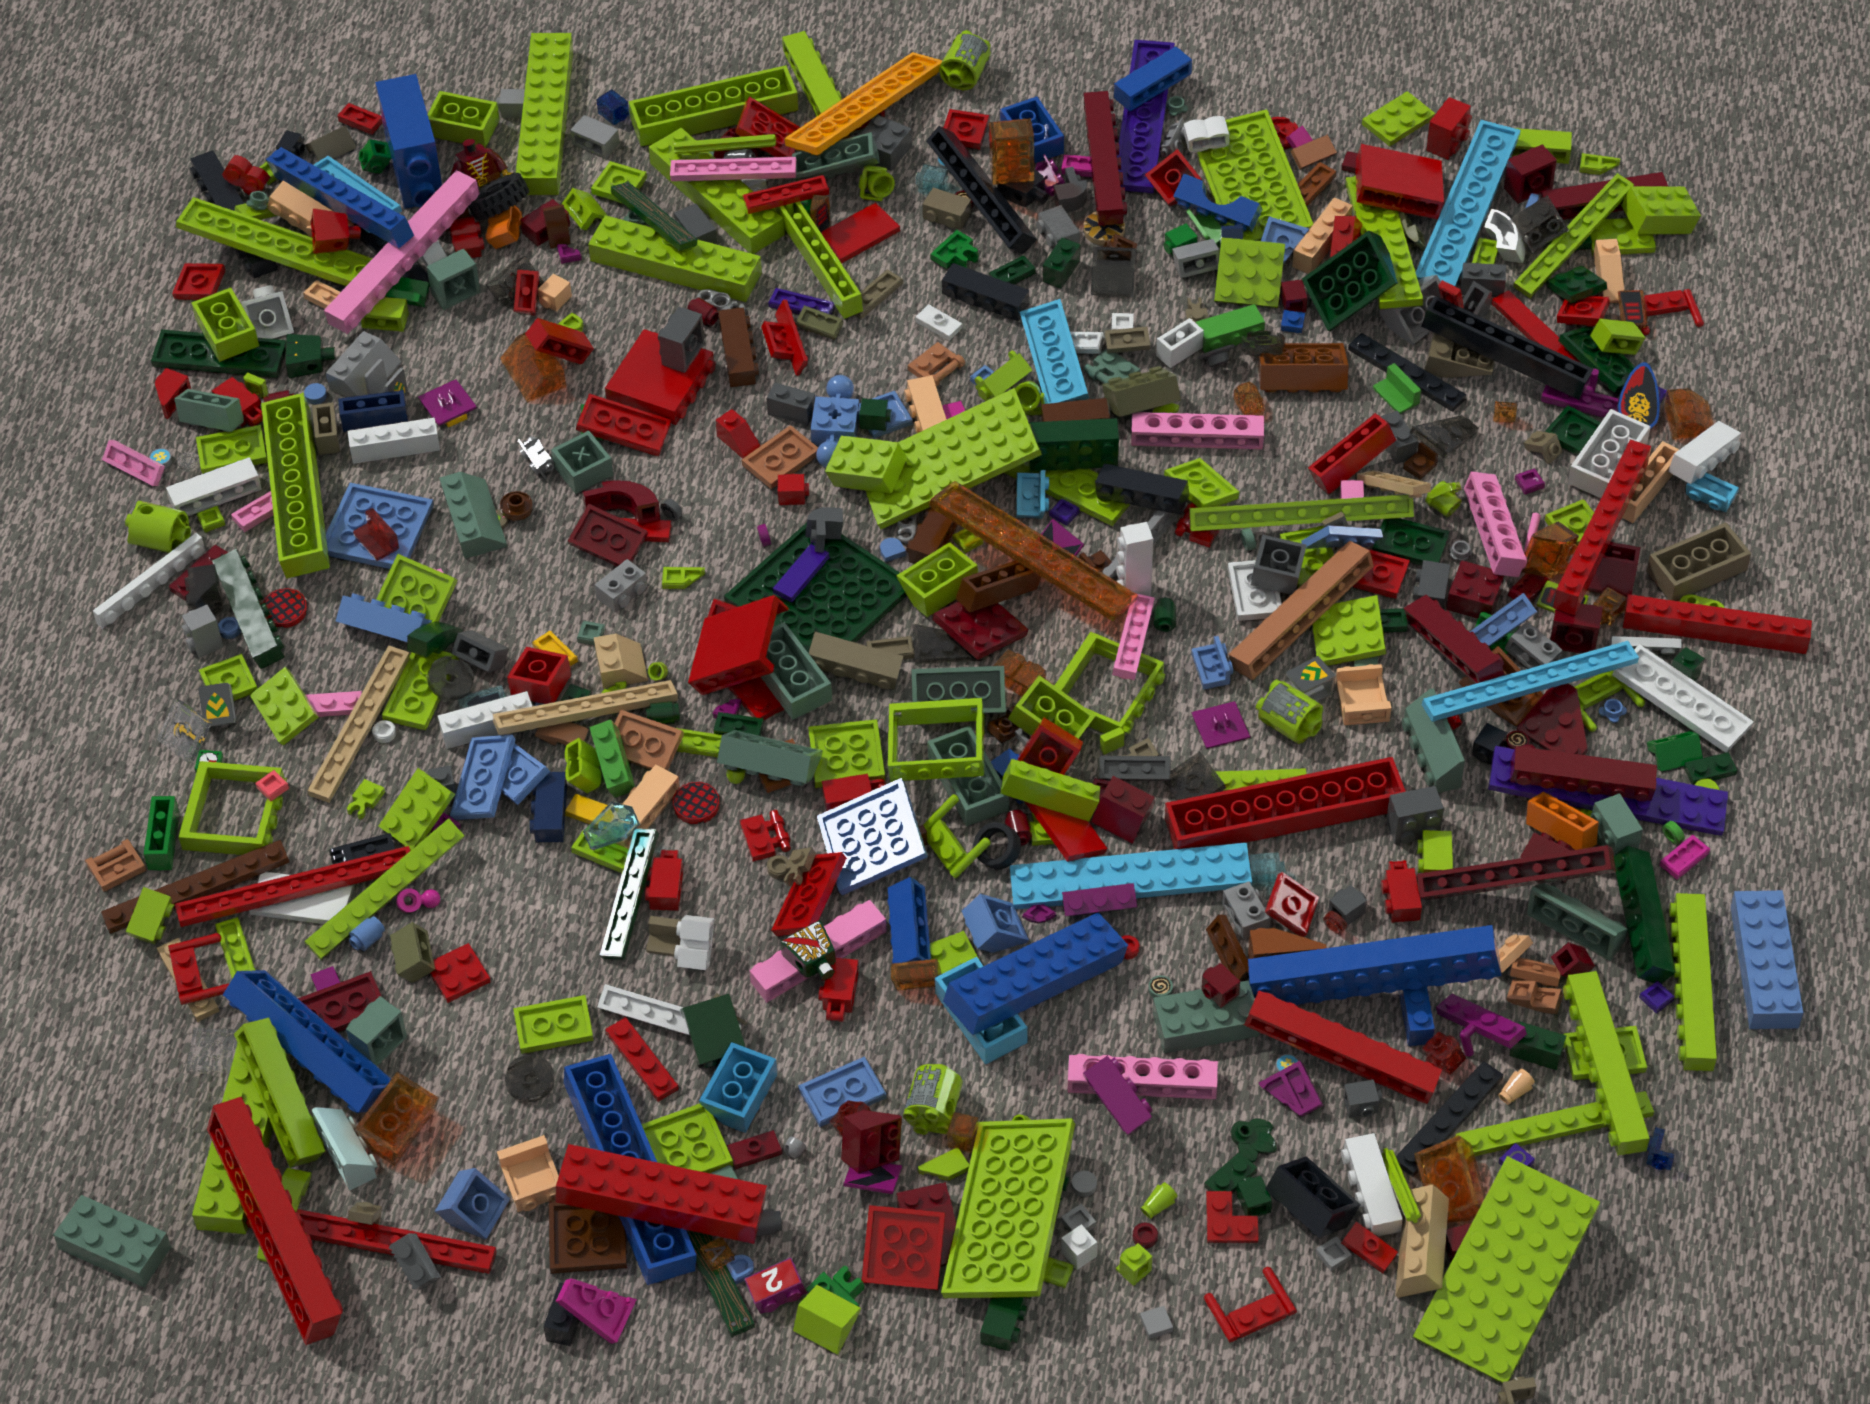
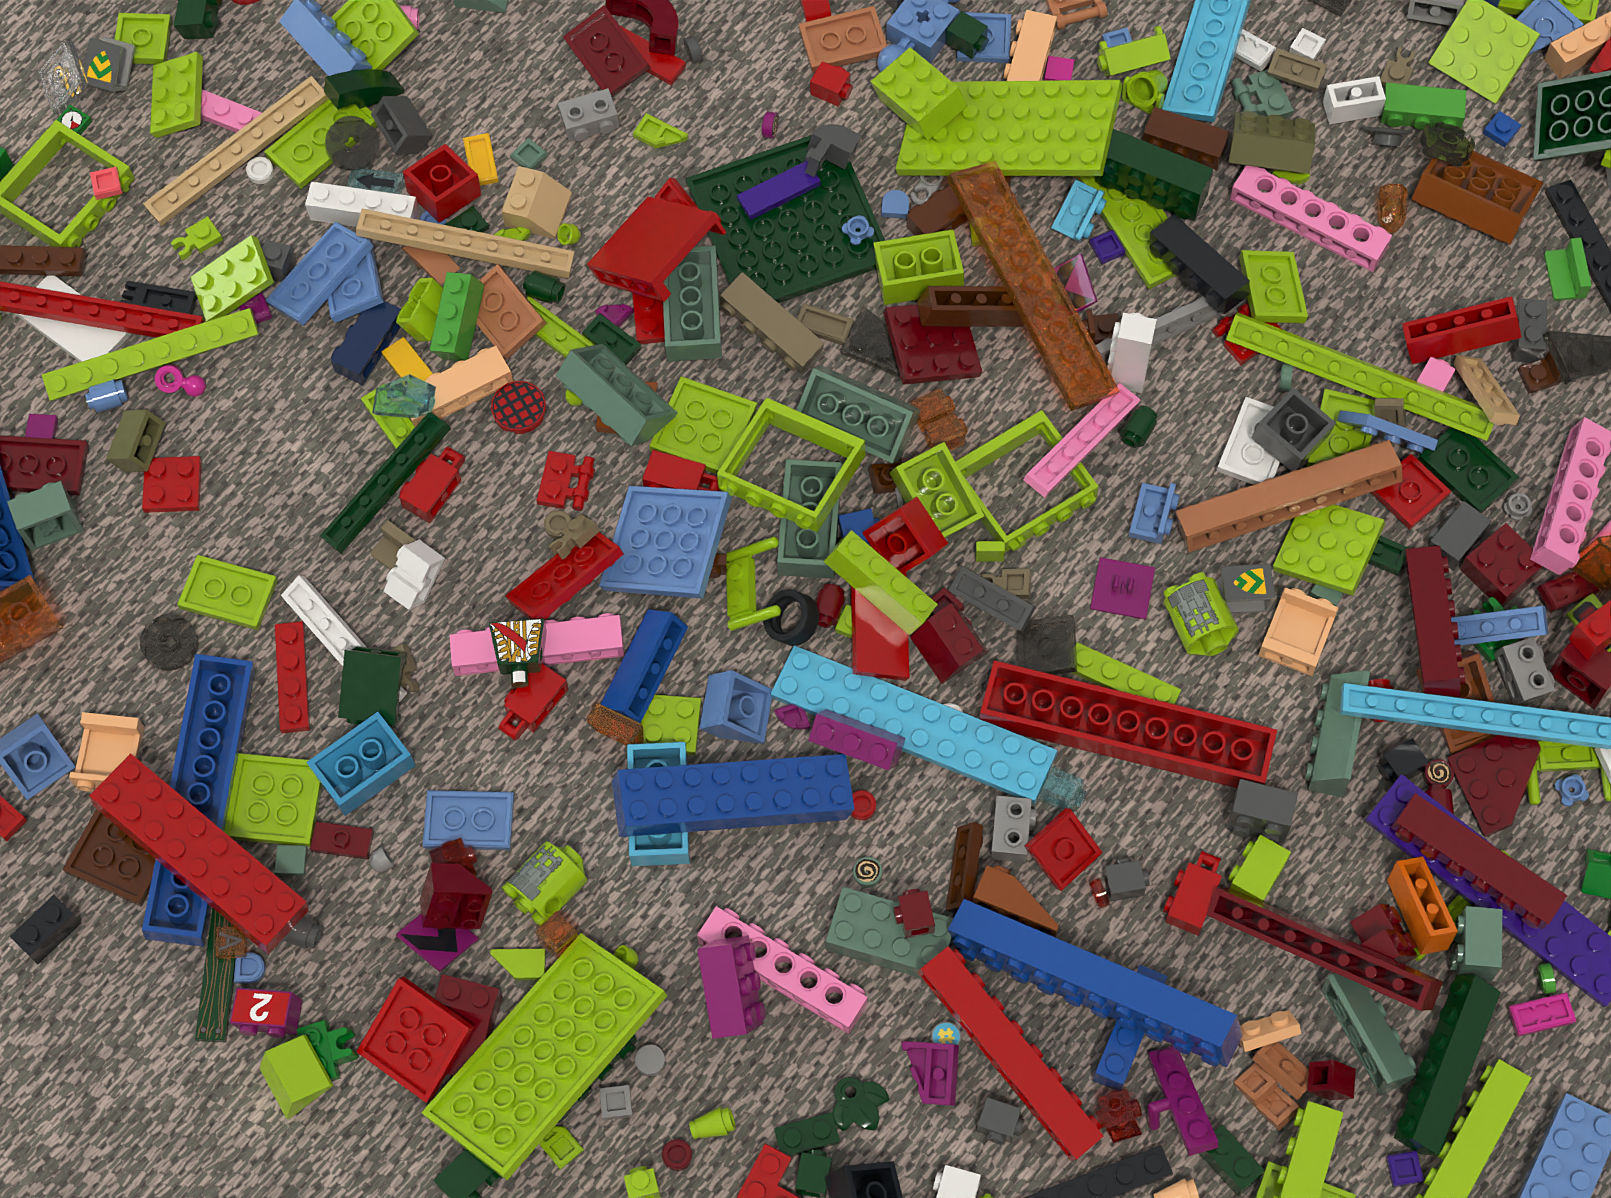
camera: 30 degrees right, 15 degrees up
(598, 1309) = (74, 942): dark pink wing -> none
(878, 573) = (854, 223): none -> medium blue plate
(1079, 1247) = (596, 1134): white brick -> none
(1293, 296) = (1520, 99): dark red brick -> none
(1444, 498) = (1537, 433): lime piece -> none

